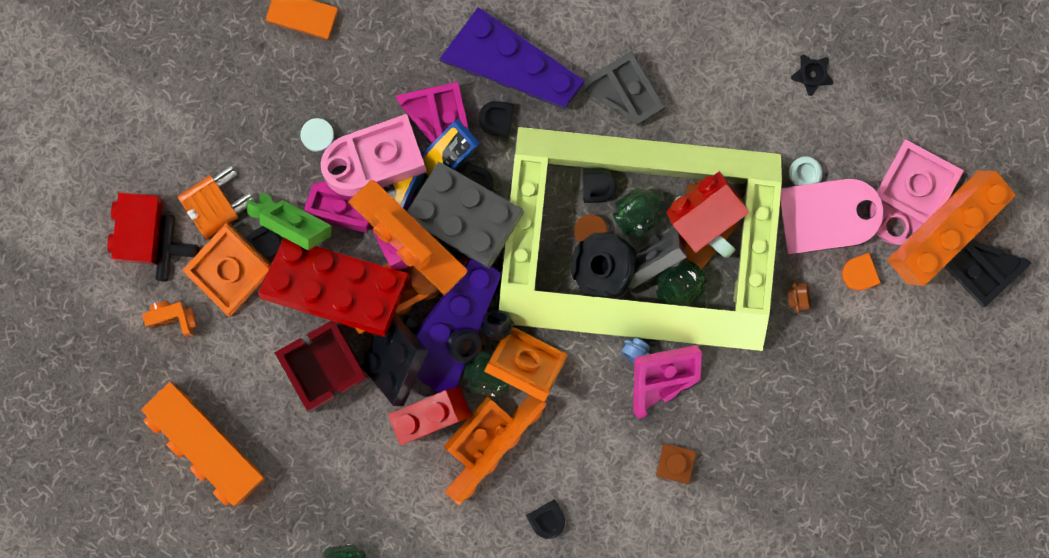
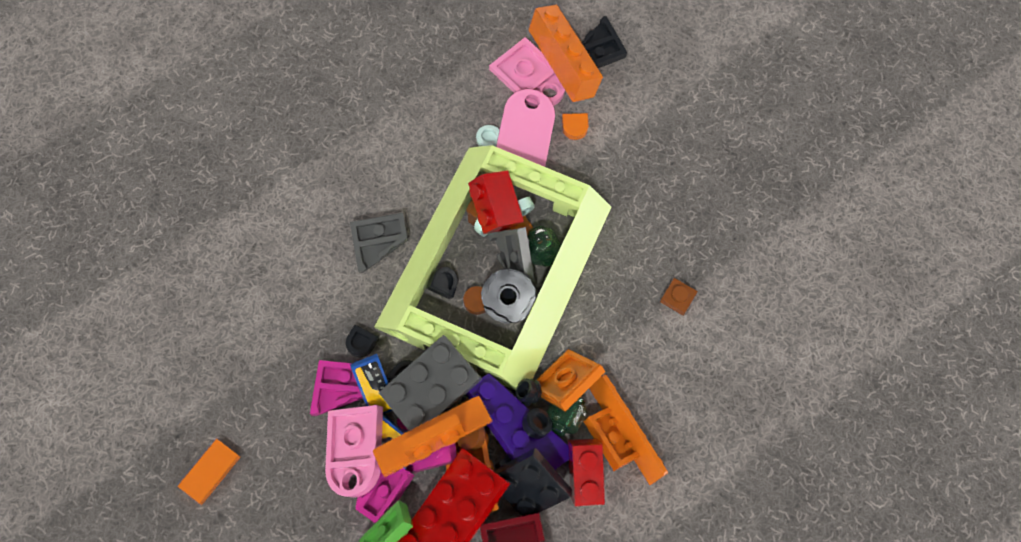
camera: 75 degrees left, 15 degrees down
(317, 135) = (315, 492): light aqua tile -> none
(501, 55) = (312, 320): dark purple wing -> none
(547, 520) = (696, 408): black tile -> none
(634, 349) = (583, 296): medium blue plate -> none
(637, 213) = (476, 258): clear green head -> none
(664, 376) = (609, 281): dark pink wing -> none
(799, 297) = (579, 169): dark orange plate -> none
(819, 67) = (415, 104): black plate -> none

